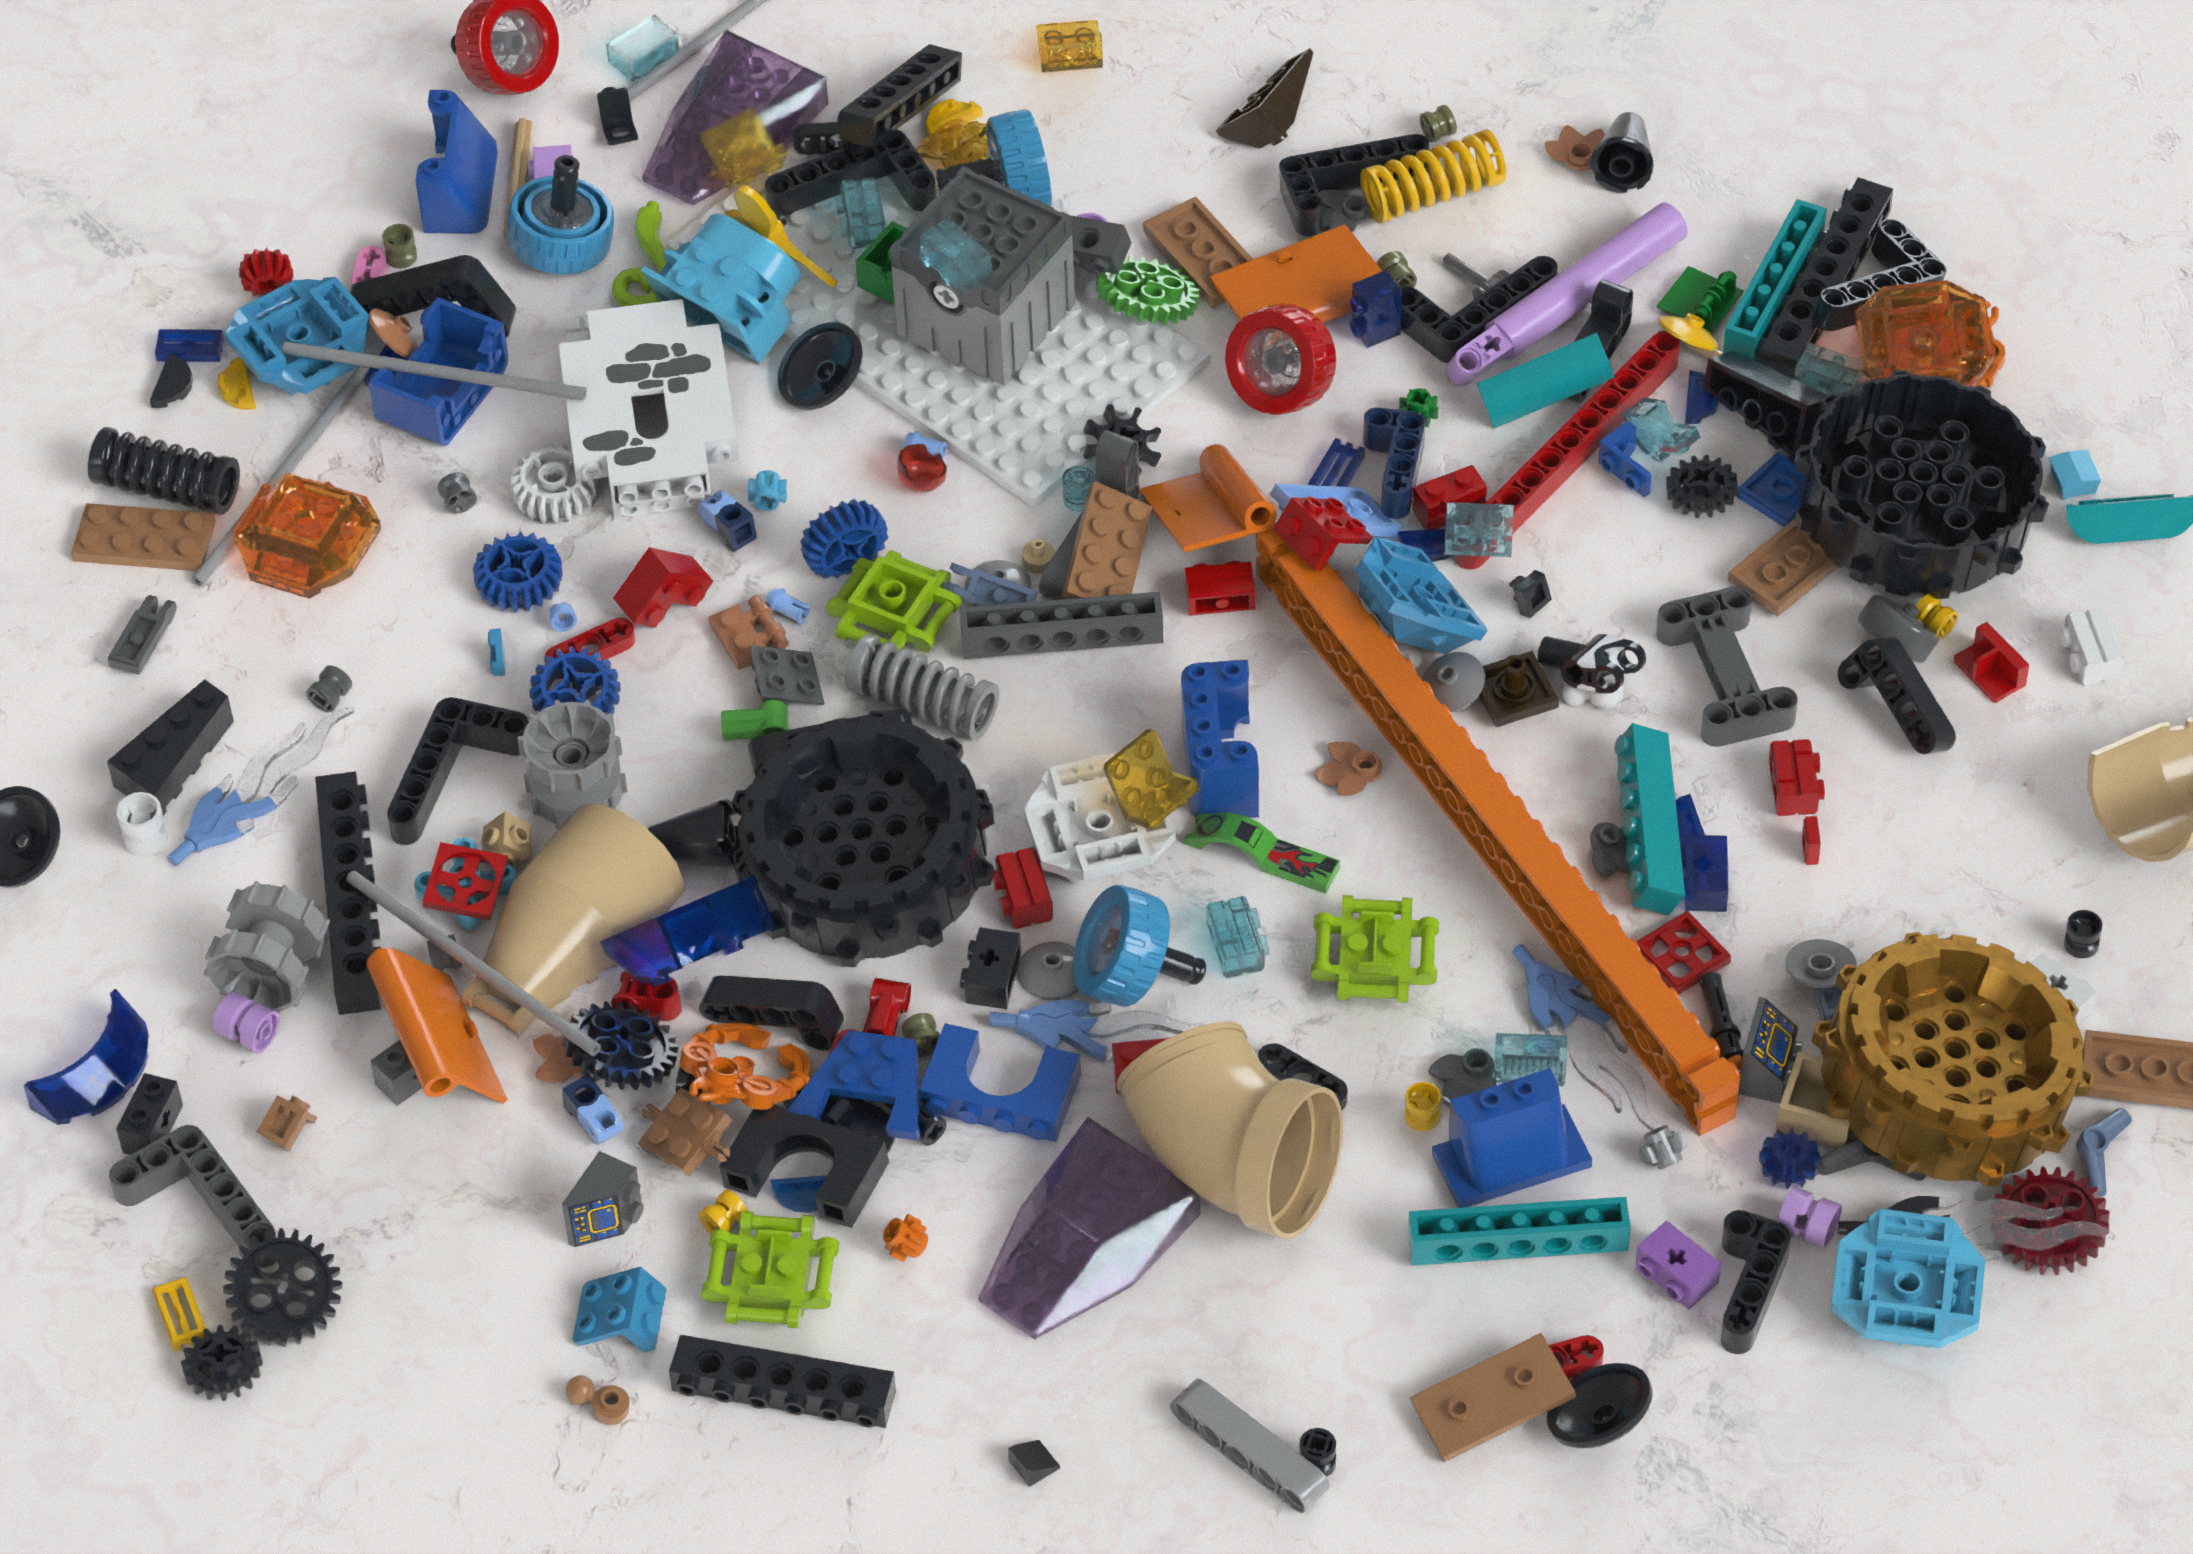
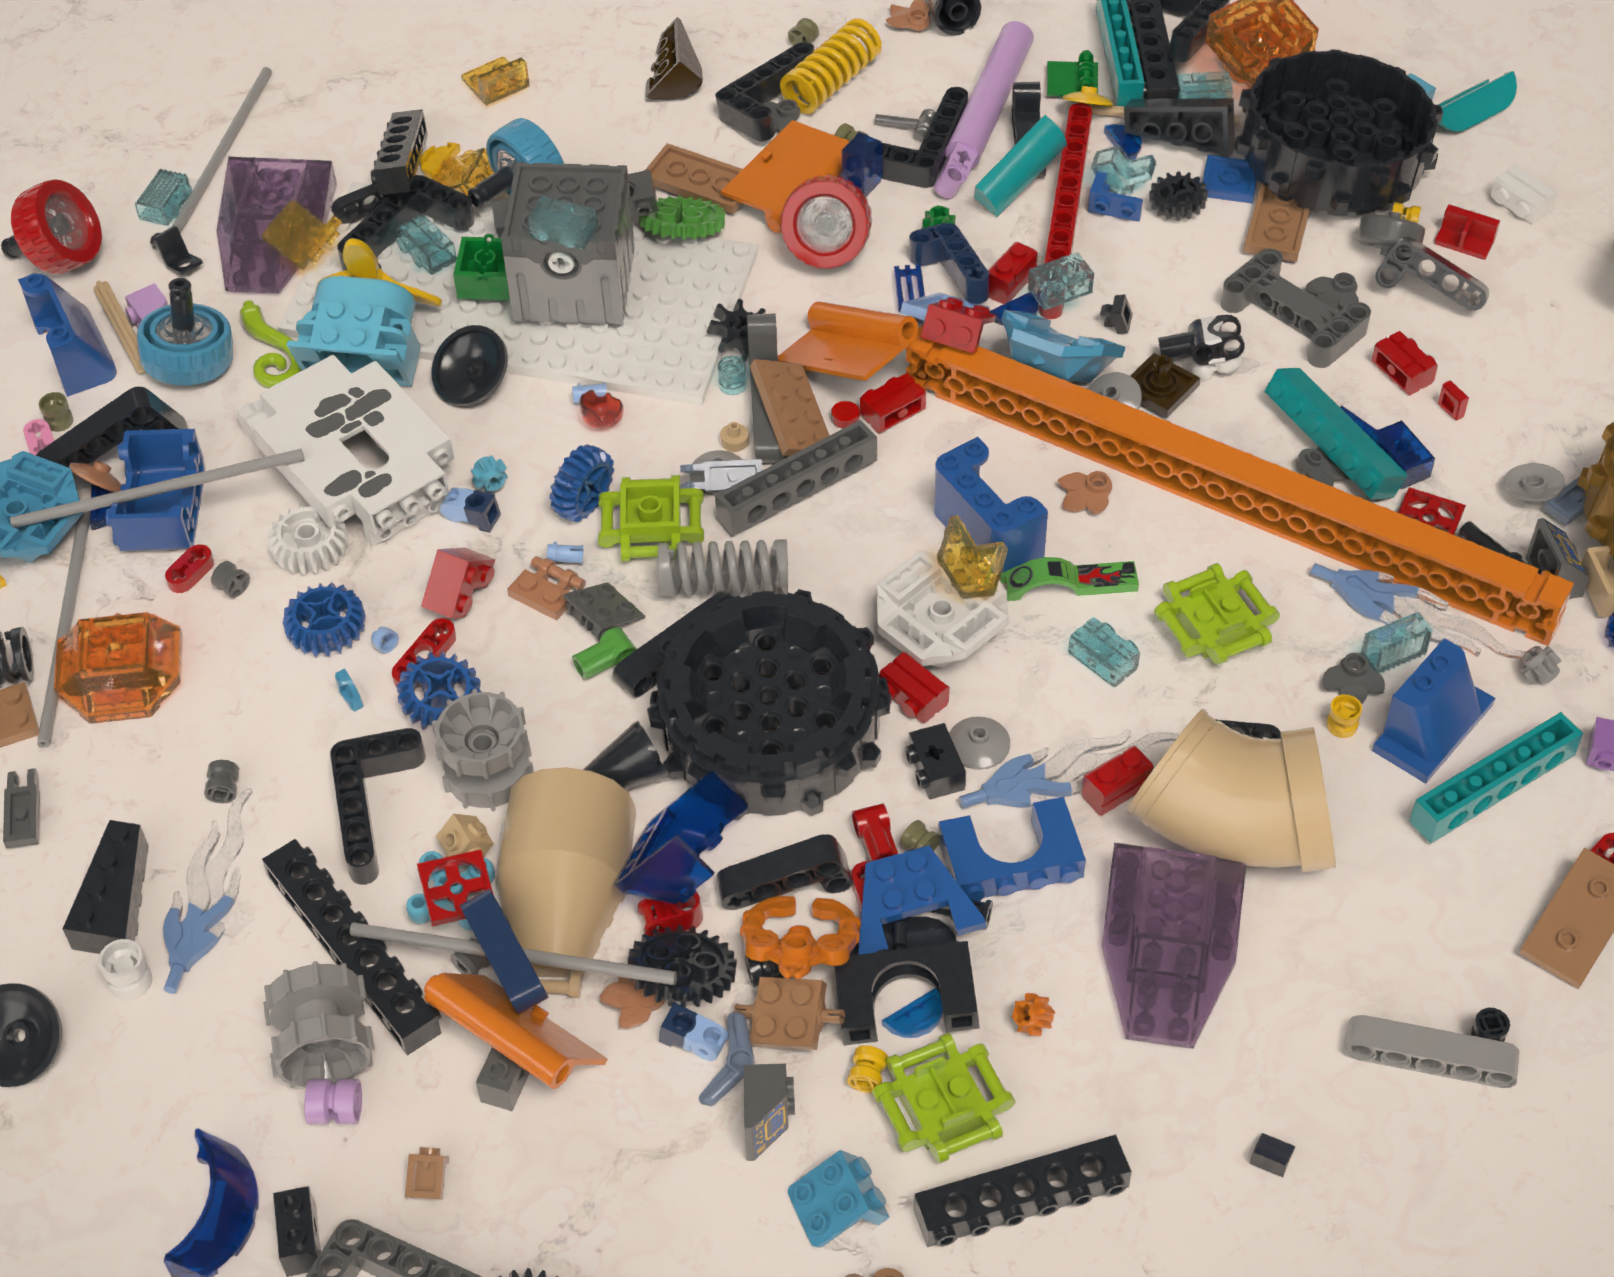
camera: 30 degrees left, 0 degrees up
(428, 465) = (188, 567): none -> red beam
(463, 927) = (504, 951): none -> dark blue beam
(621, 1148) = (739, 1055): none -> sand blue piece
(1126, 948) = (1041, 694): dark azure wheel -> none
(1167, 580) = (845, 413): none -> red tile
(1788, 667) = (1335, 291): none -> dark grey plate

